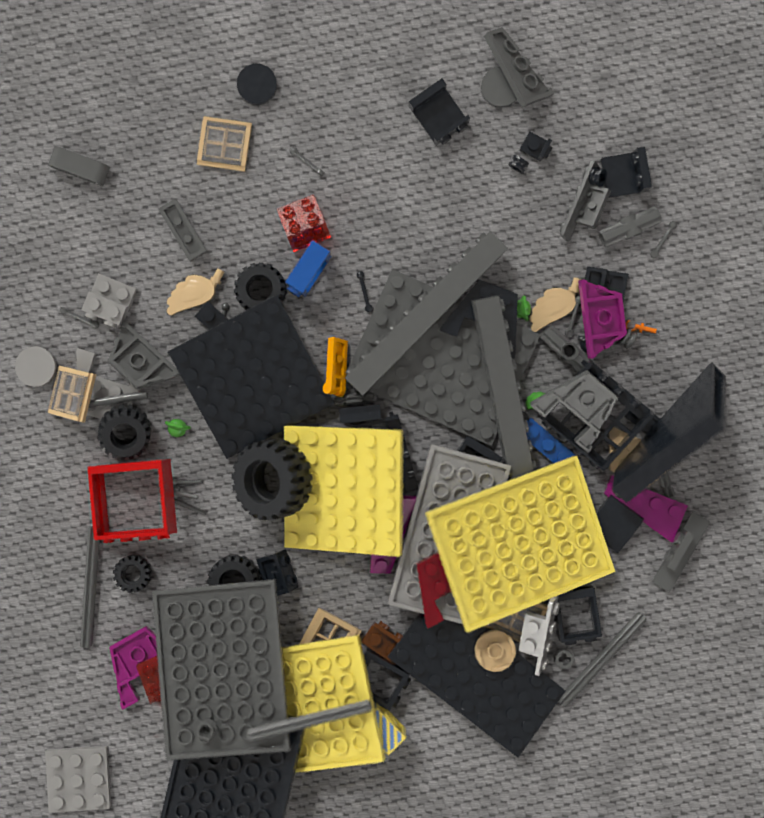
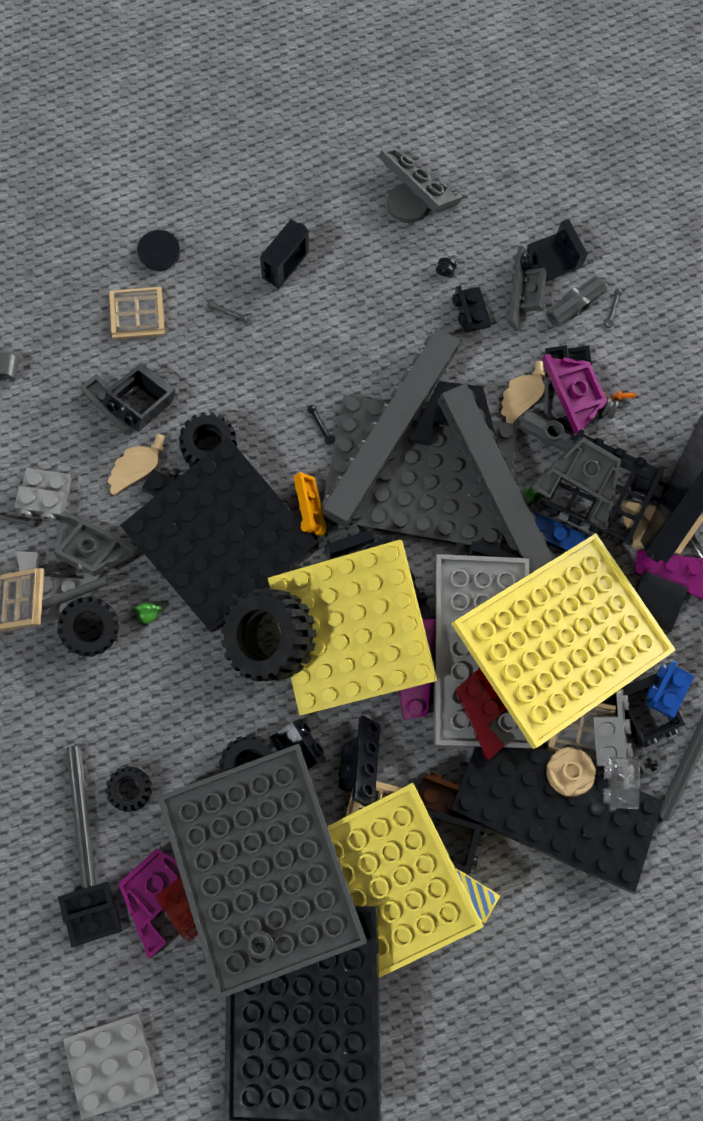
camera: 25 degrees left, 15 degrees down
(83, 664) = (90, 914): none -> black slope
(99, 502) = (71, 709): red window -> none
(177, 493) = (155, 682): dark grey plant -> none
(223, 221) = (150, 384): none -> black window
(303, 222) = (240, 370): clear red bracket -> none
(308, 269) = (255, 409): blue window -> none
(309, 720) = (380, 898): dark grey axle -> none
(323, 601) = (360, 762): none -> black bracket
(371, 119) = (285, 253): none -> black window
(438, 113) = (351, 238): black panel -> none
(523, 308) = (493, 404): bright green piece -> none
(530, 211) = (471, 309): none -> black bracket
(533, 673) = (623, 783): none -> clear bracket
(536, 146) = (459, 248): black bracket -> none
(597, 605) = (669, 689): none -> blue bracket

